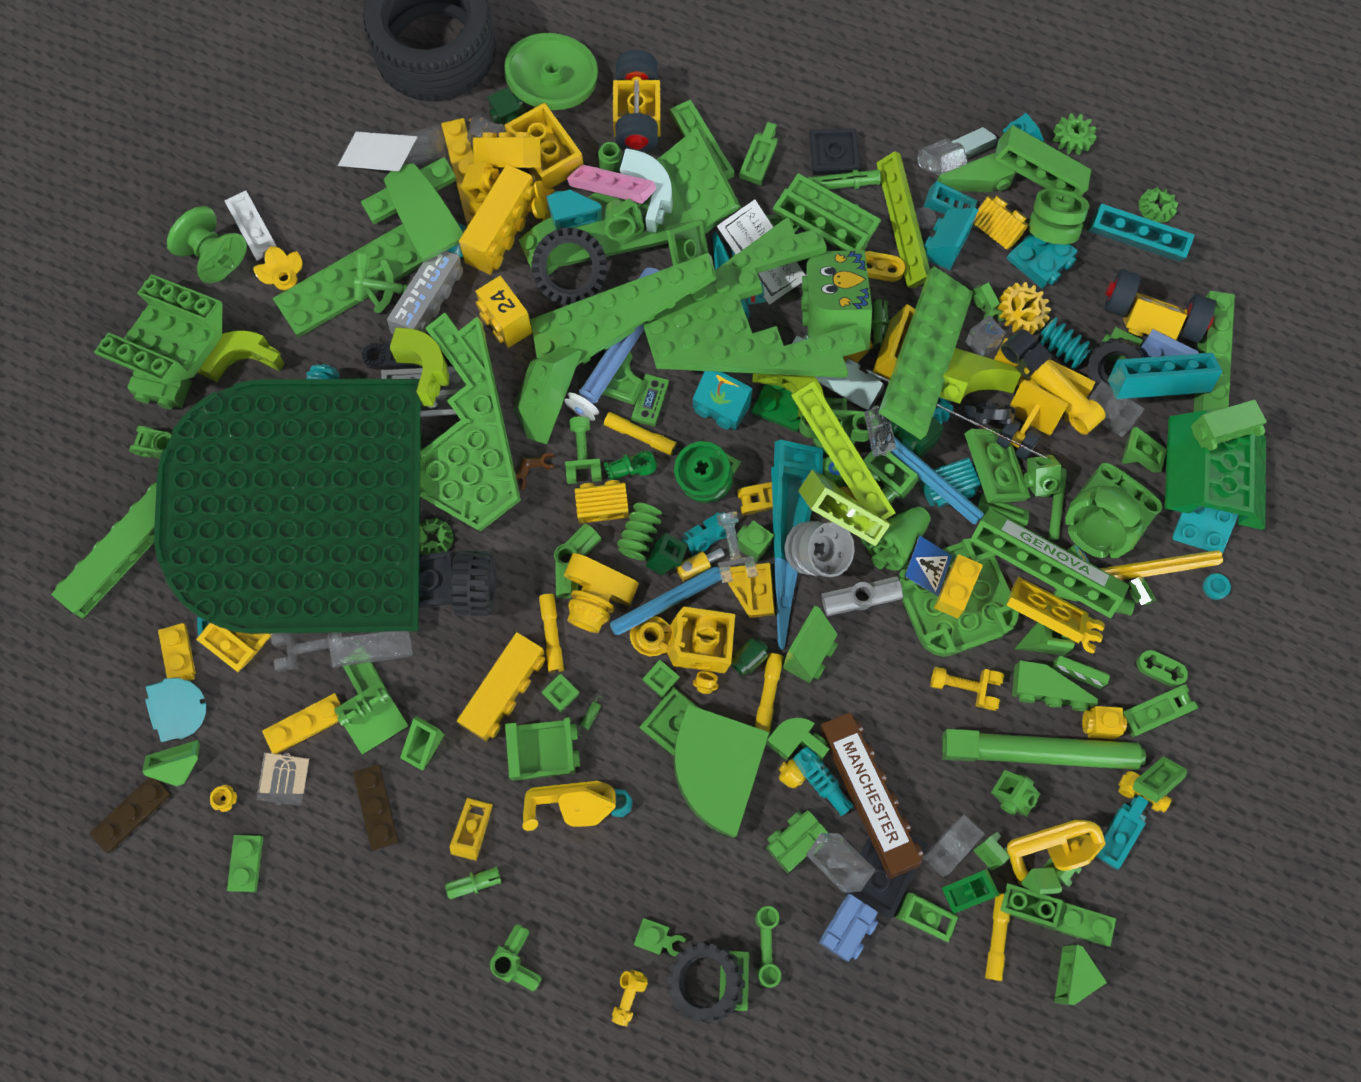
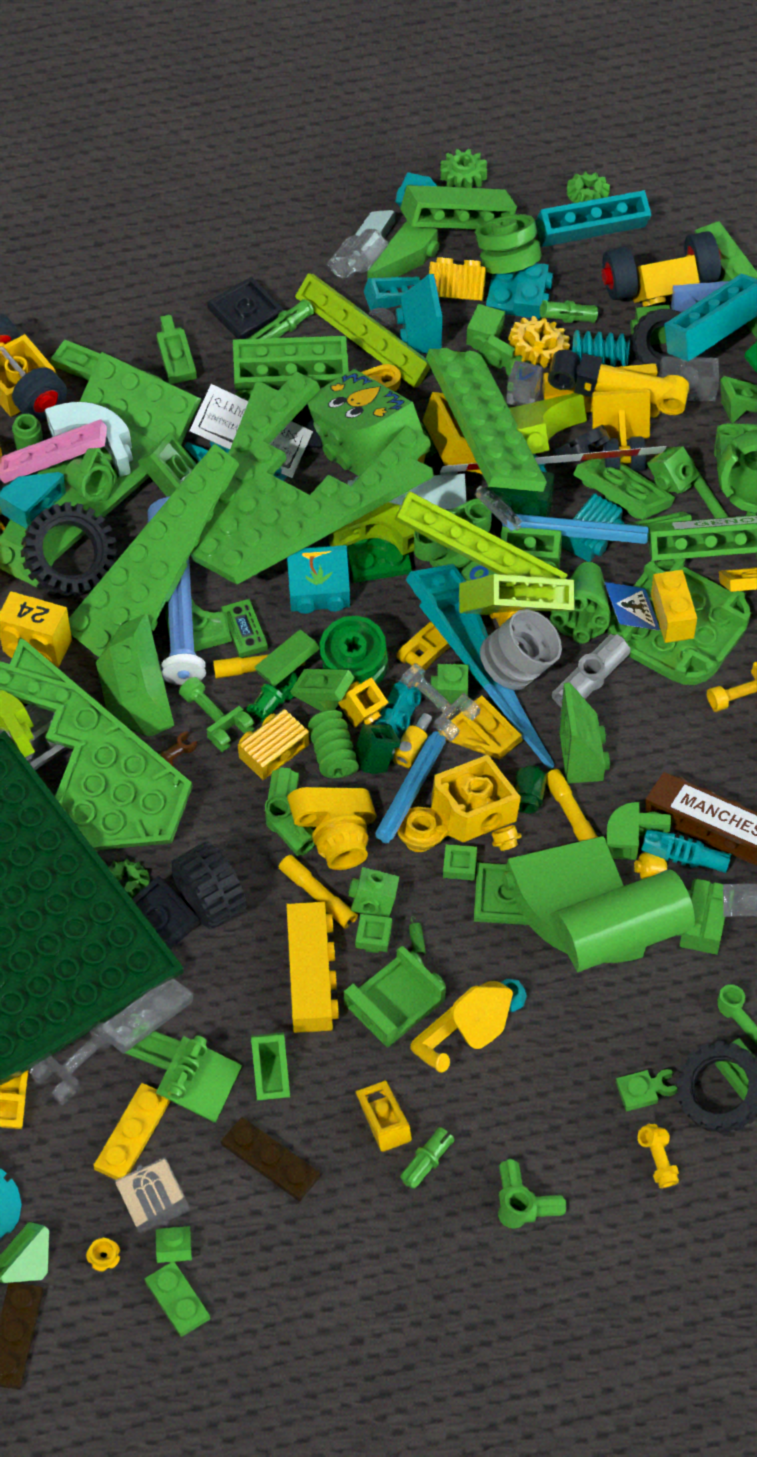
camera: 35 degrees left, 15 degrees down
(269, 824) = (173, 1244): none -> bright green plate
(582, 663) = (373, 888): none -> bright green brick
(655, 444) = (287, 657): none -> bright green tile
(662, 483) = (322, 687): none -> bright green slope
(682, 513) = (363, 703): none -> yellow brick
(730, 809) = (624, 919): none -> bright green brick
(993, 270) = (483, 323): none -> bright green brick
(1064, 297) = (568, 311): none -> bright green pin

